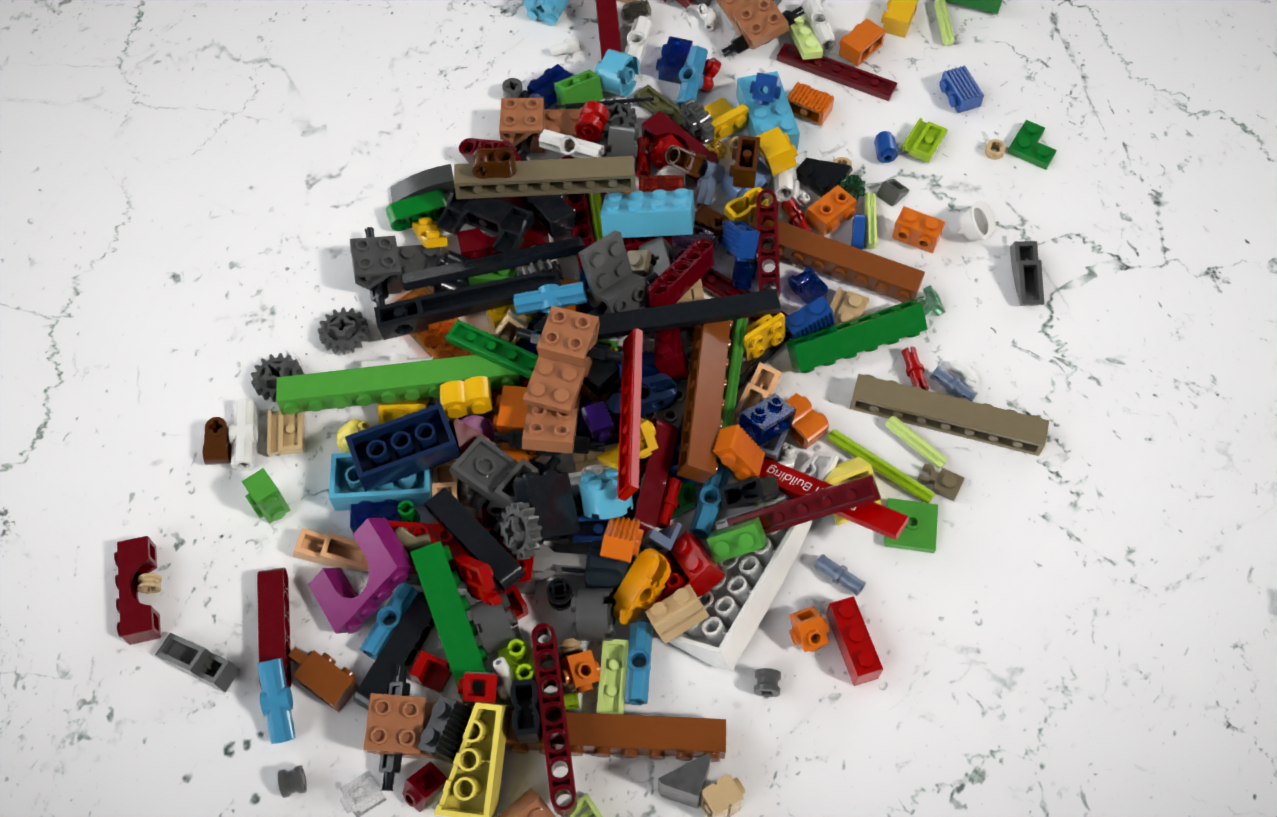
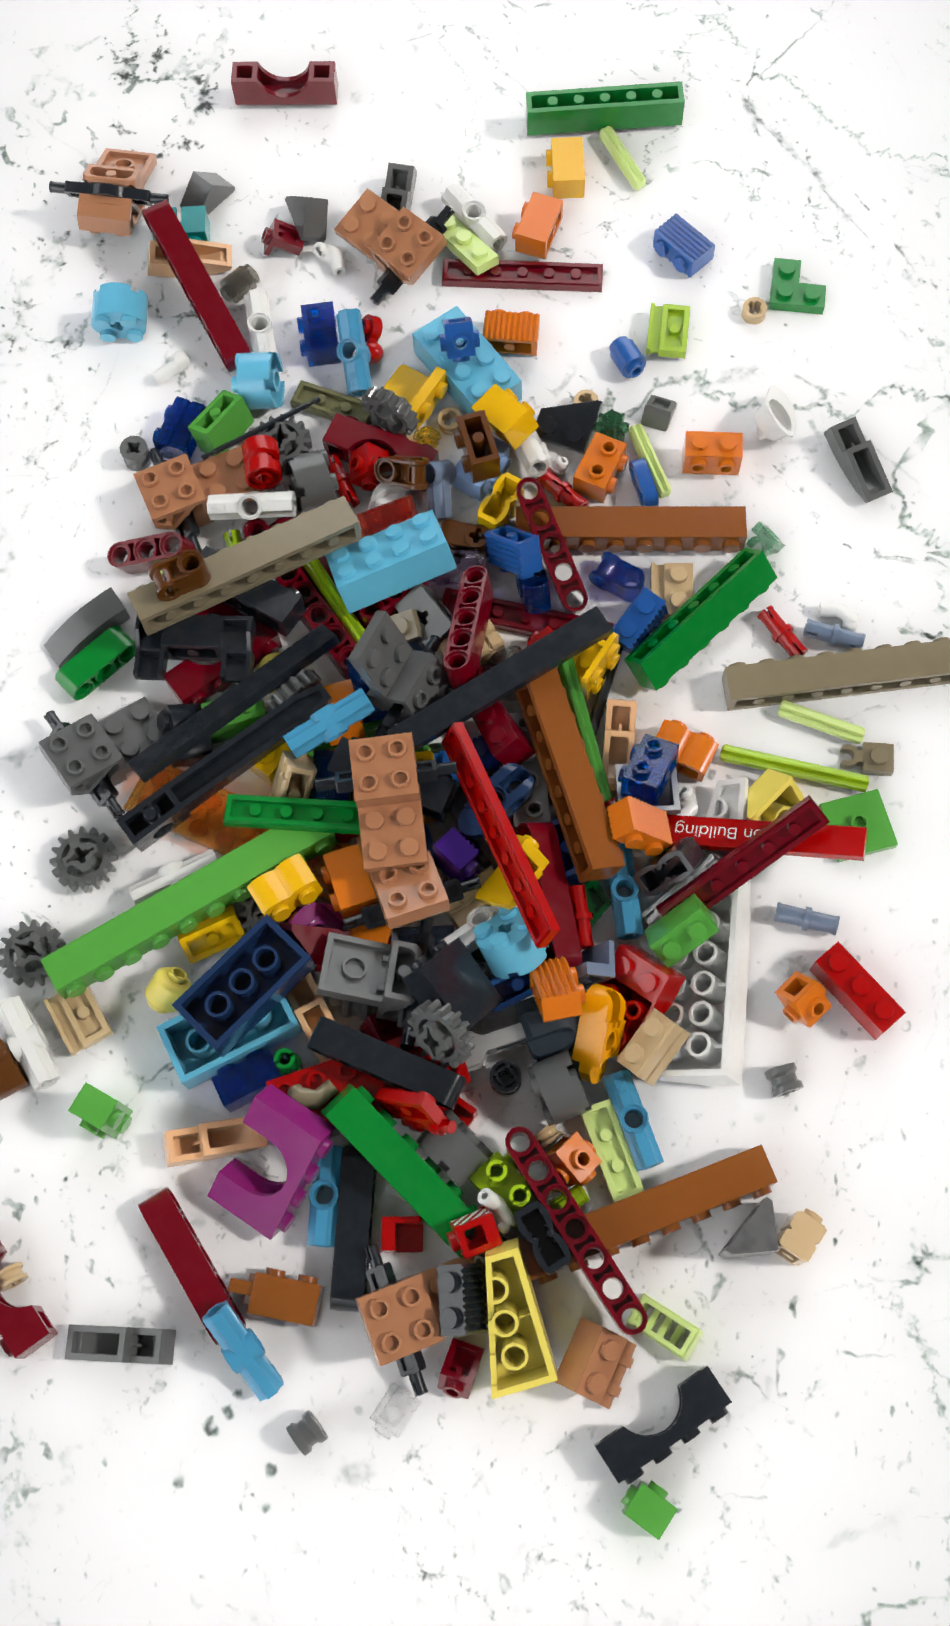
camera: 20 degrees left, 10 degrees up
(428, 233) = (125, 689): yellow slope -> none

